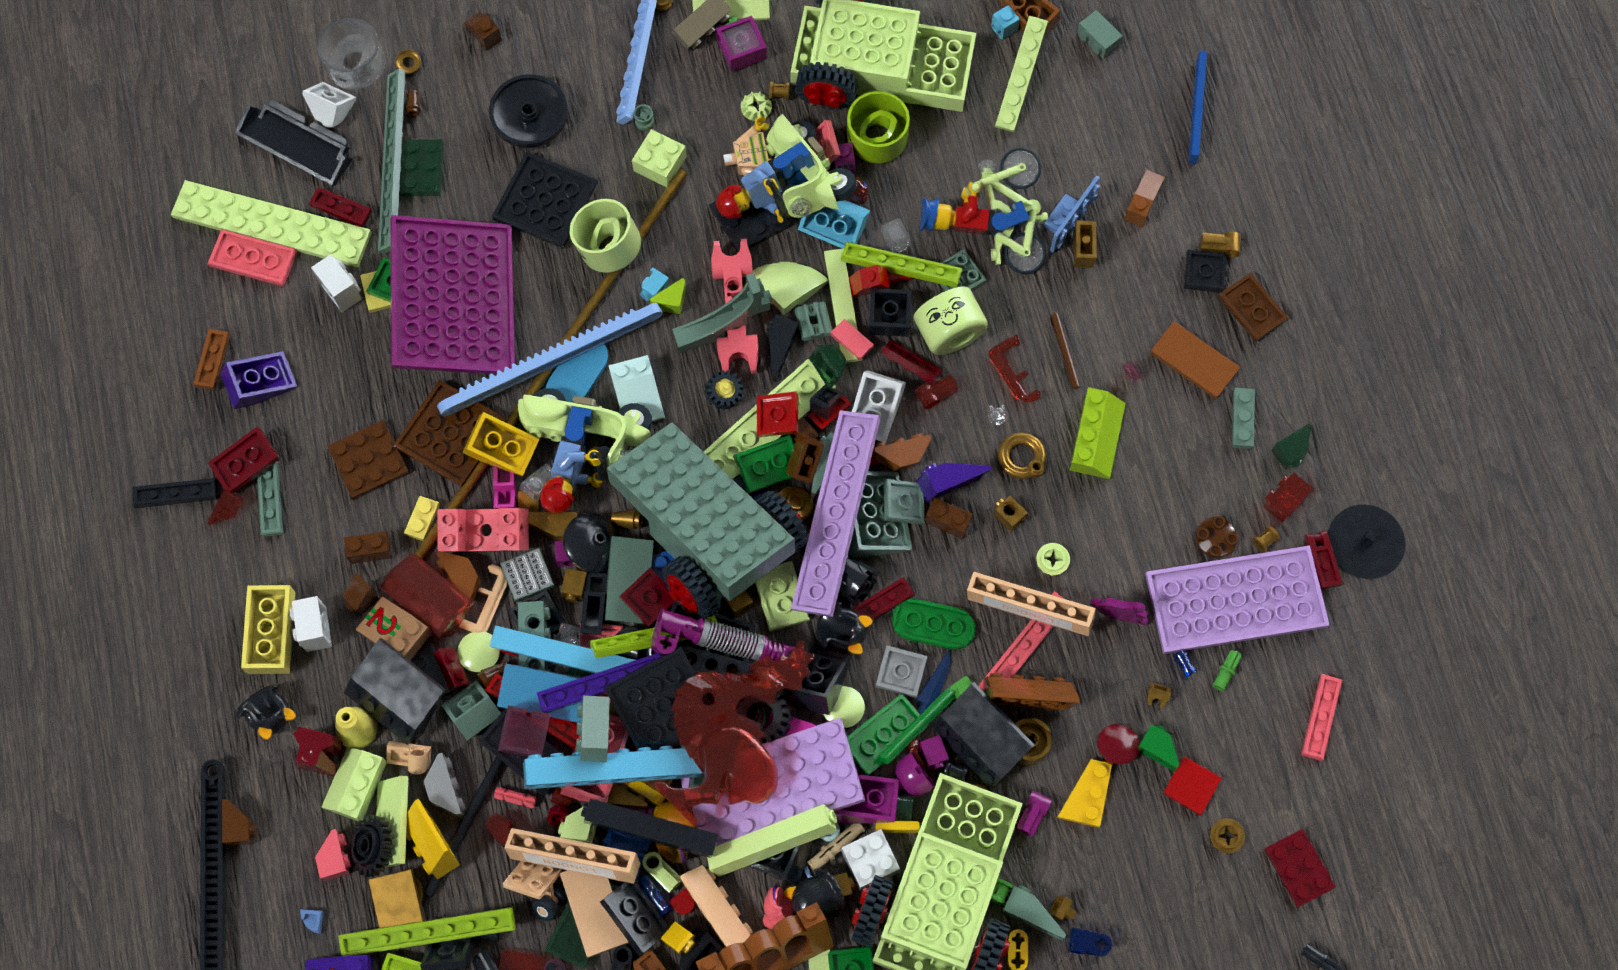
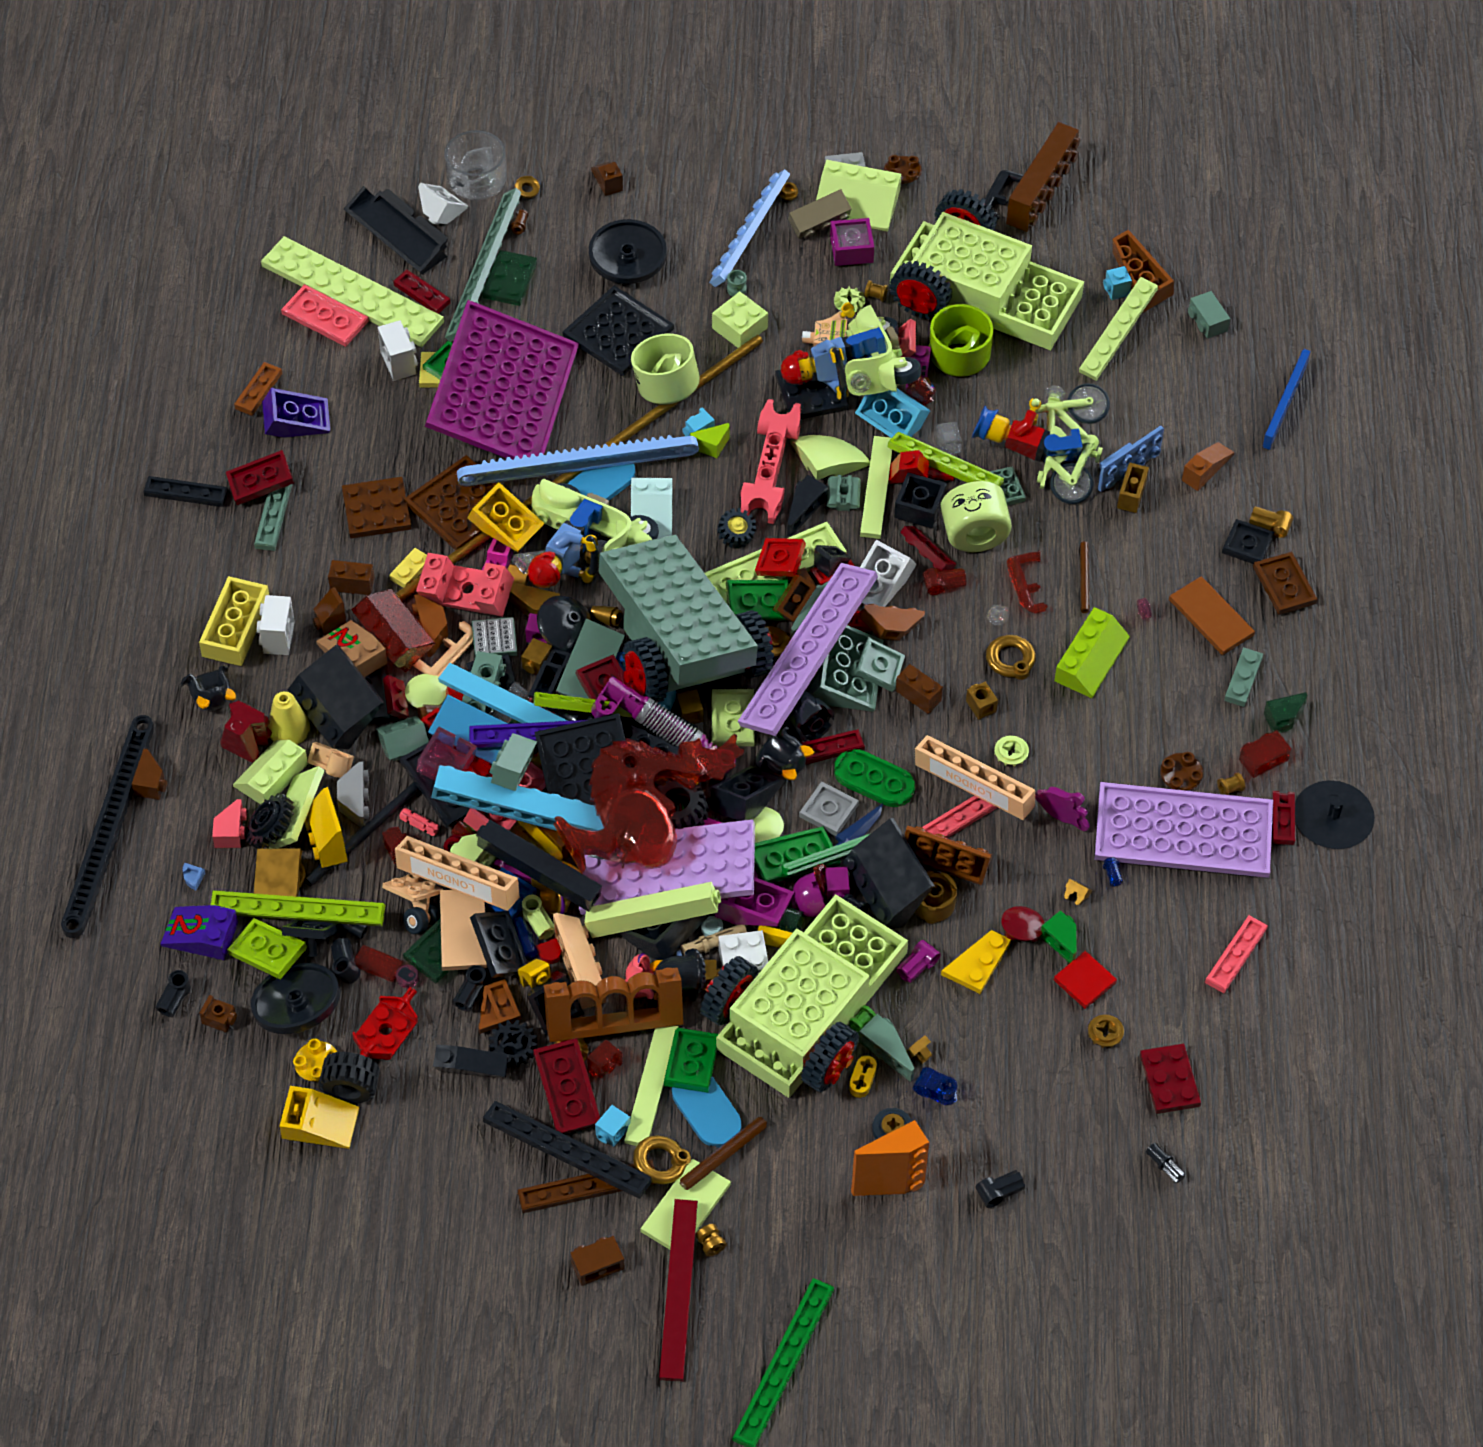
camera: 15 degrees right, 15 degrees down
(225, 507) = (229, 512): clear red tile -> none
(733, 314) = (782, 449): sand green arch -> none
(829, 363) = (845, 527): clear green slope -> none
(851, 339) = (875, 515): coral tile -> none
(947, 477) = (932, 650): dark purple slope -> none
(1227, 670) = (1153, 889): bright green axle -> none

